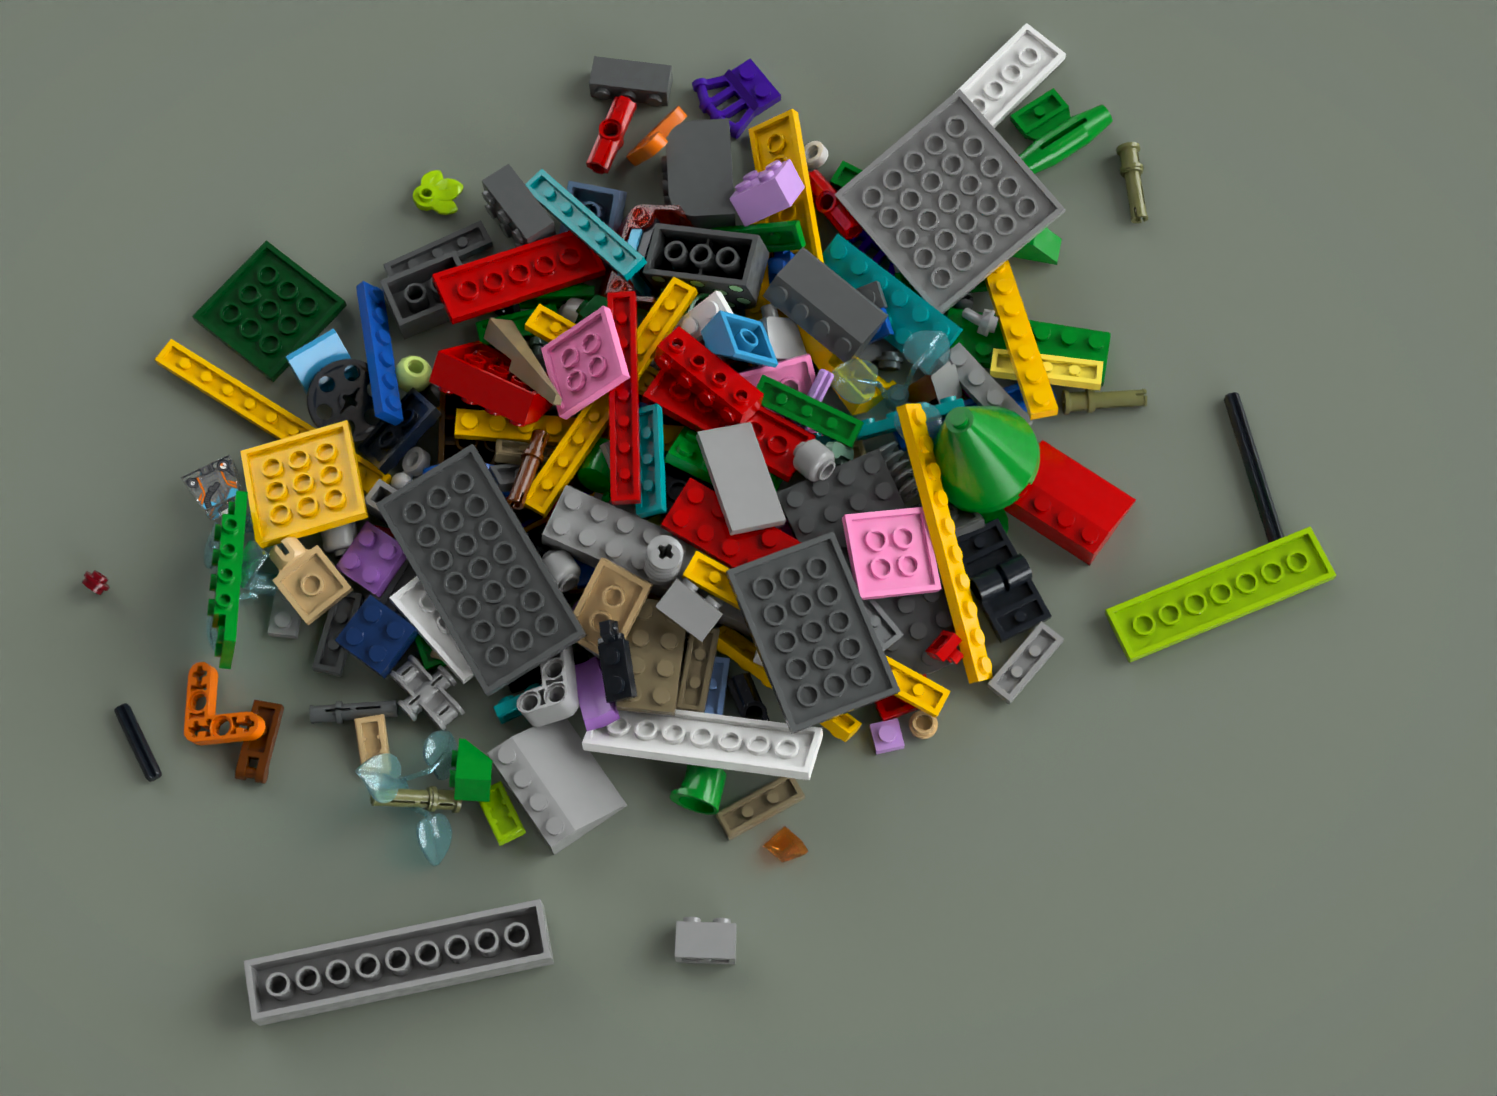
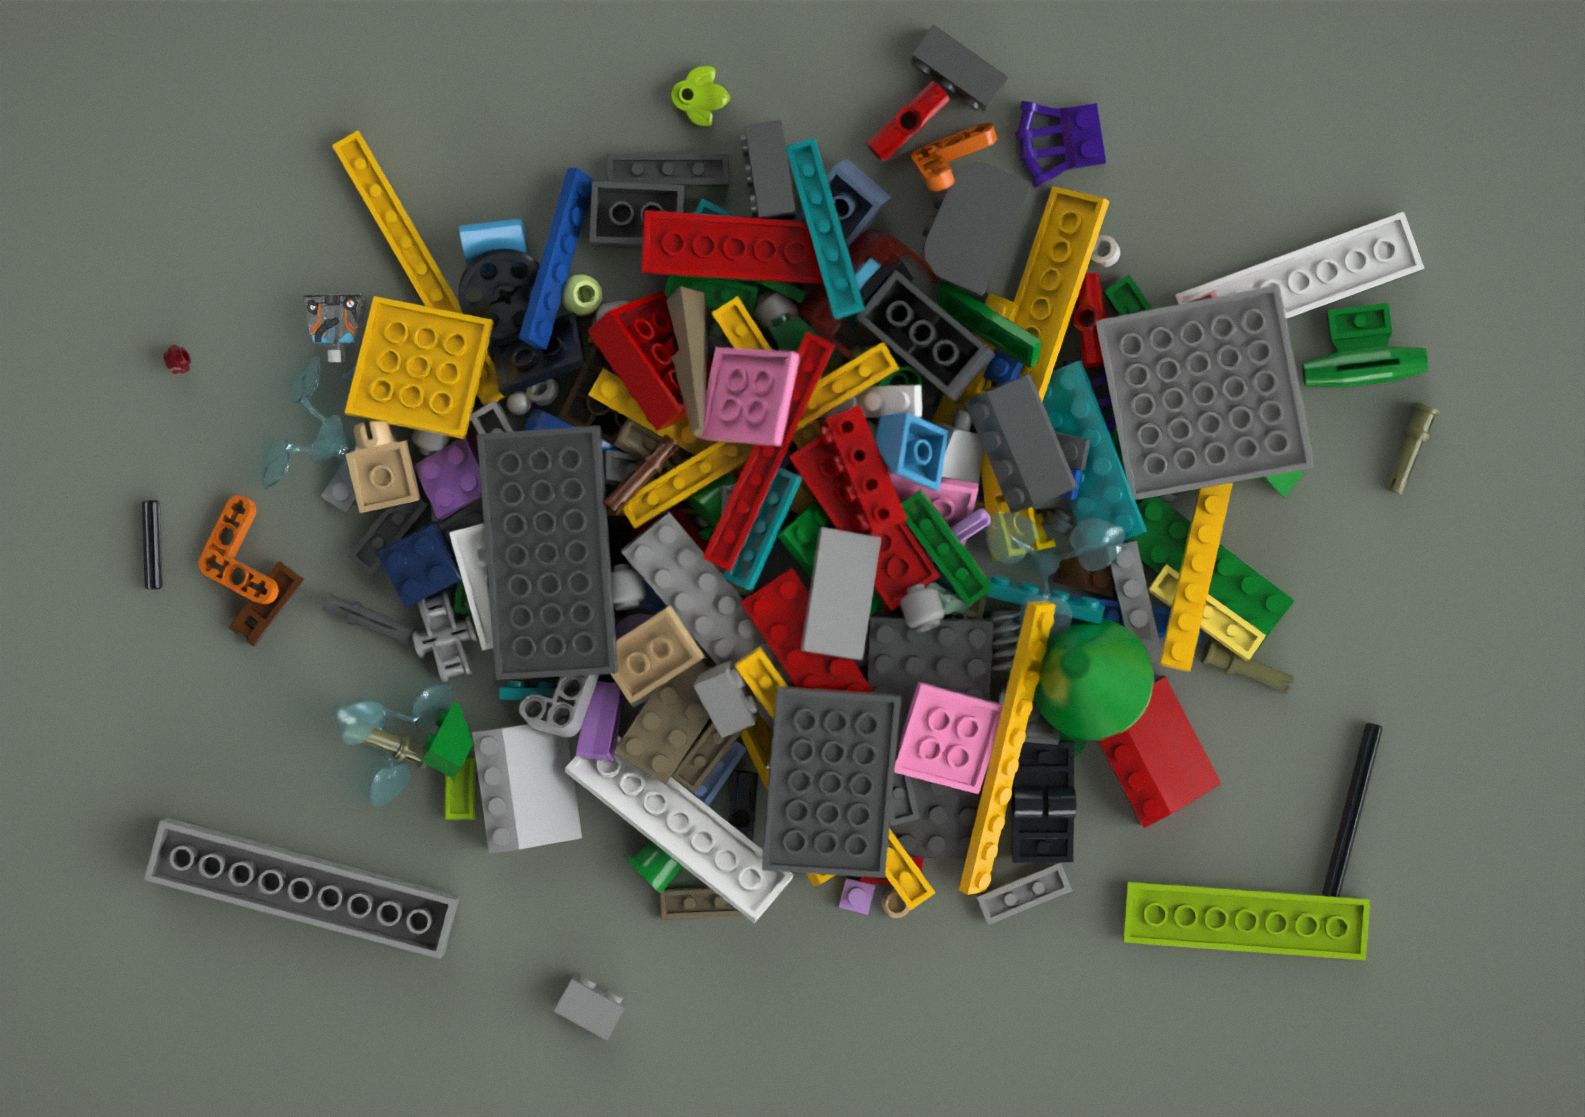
camera: 25 degrees right, 20 degrees up
(227, 578) = (299, 446): green plate -> none
(269, 310) = (470, 146): dark green plate -> none
(371, 736) = (371, 662): tan plate -> none
(615, 663) = (631, 714): black hinge -> none
(663, 560) = (722, 659): light grey piece -> none
(767, 191) = (1027, 287): lavender brick -> none
(785, 845) = (708, 952): clear orange slope -> none
(945, 648) = (952, 848): red tile -> none
(946, 382) = (1099, 582): light grey sticker -> none
(986, 322) = (1174, 534): light grey plate -> none

